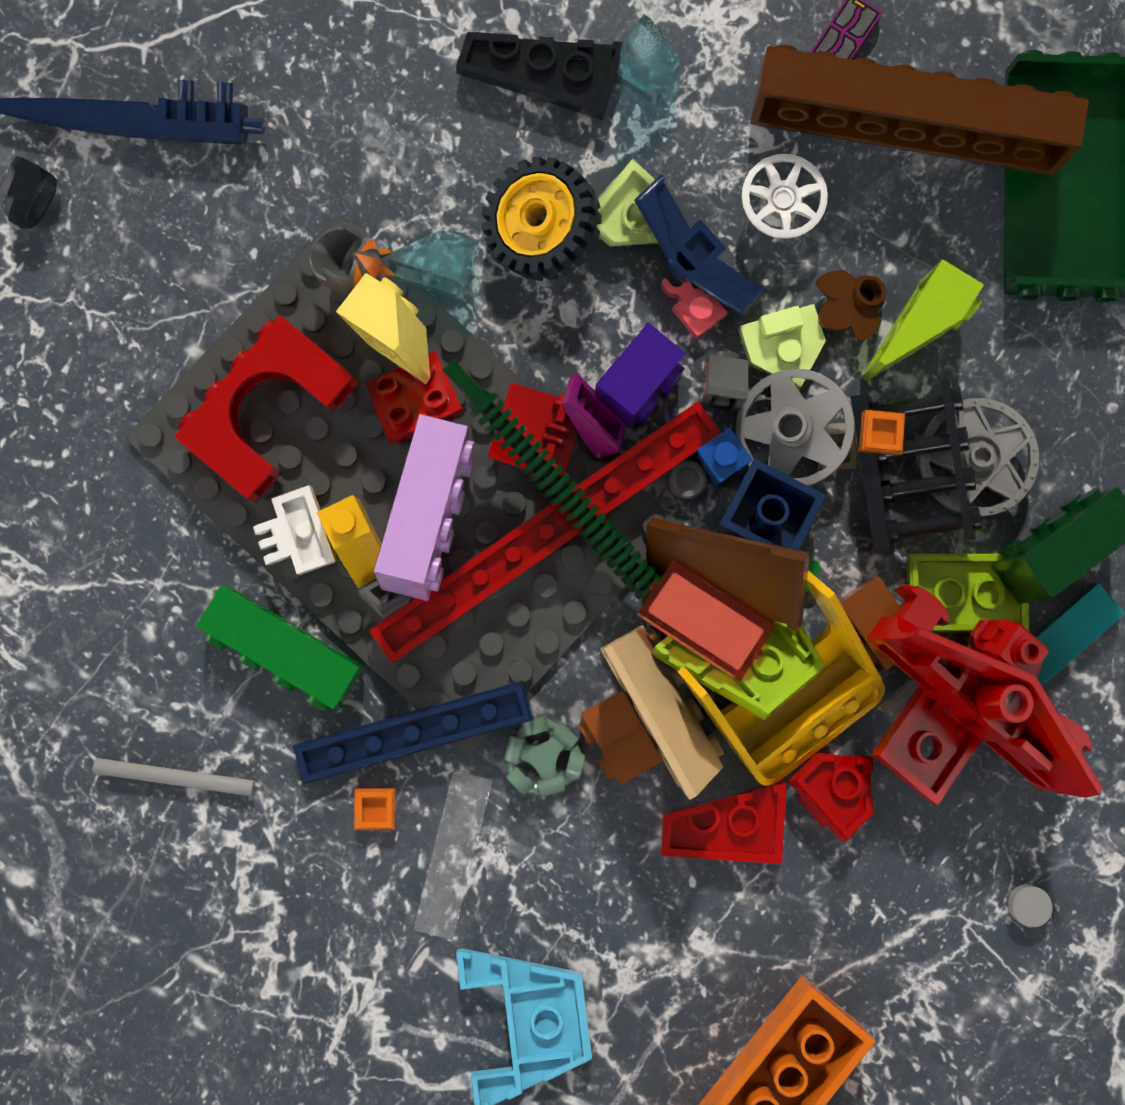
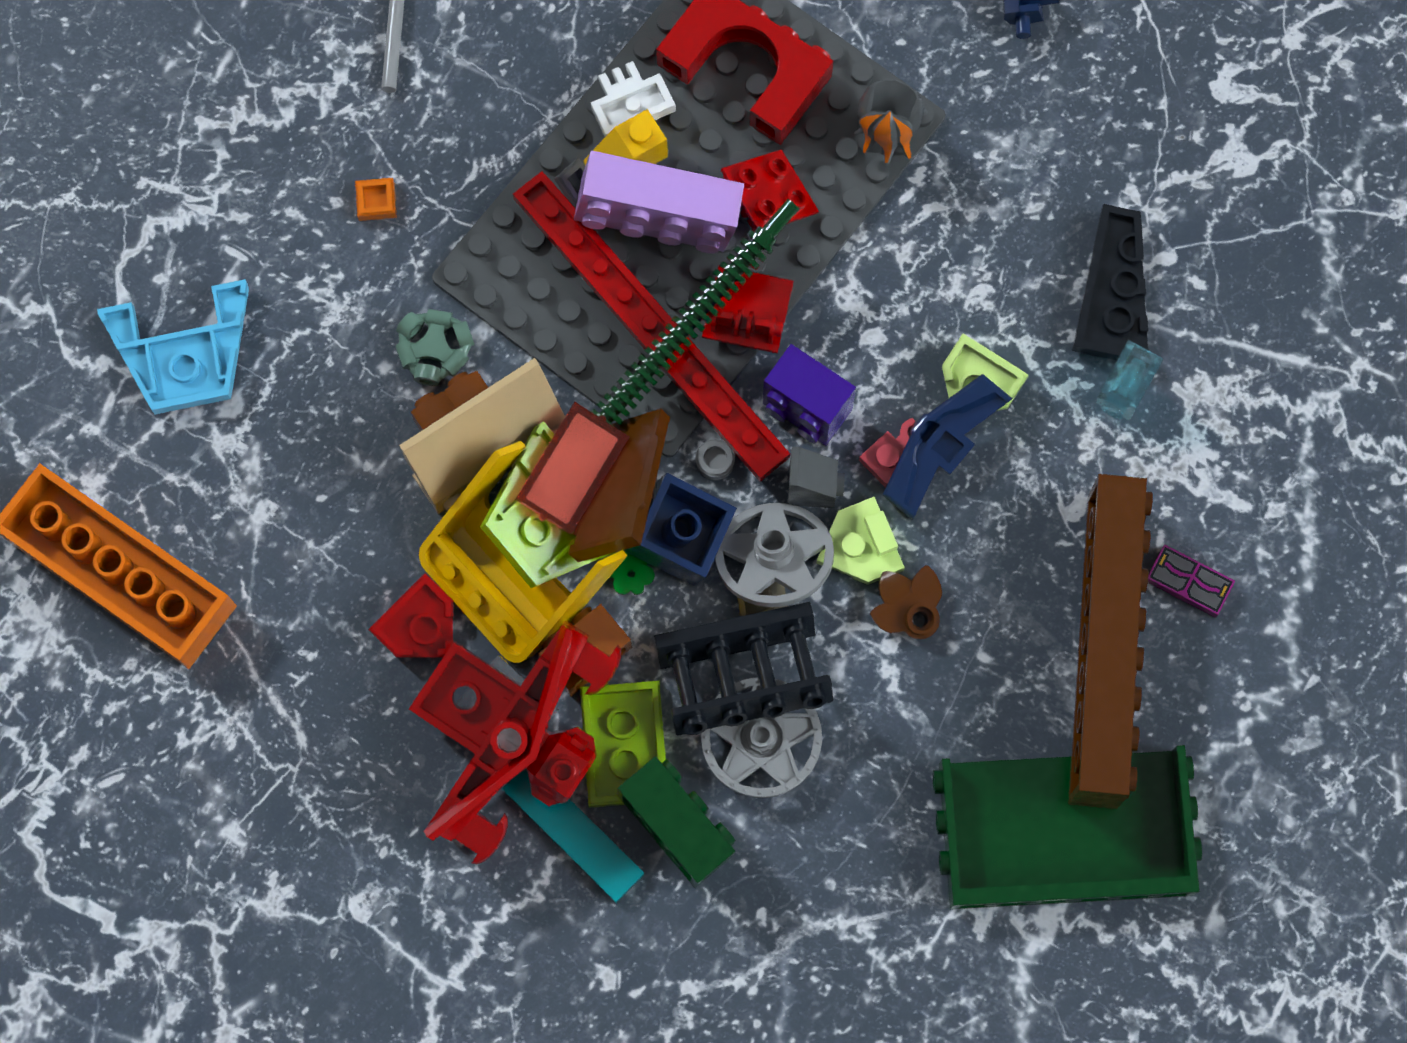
camera: 90 degrees right, 10 degrees down
(279, 647) = (521, 98): green brick -> none
(388, 324) = (830, 157): light yellow slope -> none
(413, 732) = (450, 225): dark blue tile -> none
(437, 262) = (904, 204): clear light blue slope -> none
(453, 854) = (337, 270): clear plate -> none
(519, 202) = (956, 293): wheel -> none
(593, 418) = (740, 366): magenta slope -> none
(722, 457) = (738, 484): blue brick -> none
(729, 828) = (374, 523): red wing -> none
(783, 197) = (1006, 524): white wheel -> none
(882, 432) = (773, 629): orange tile -> none
(935, 307) = (895, 667): lime slope -> none
(1030, 905) = (314, 824): light grey tile -> none

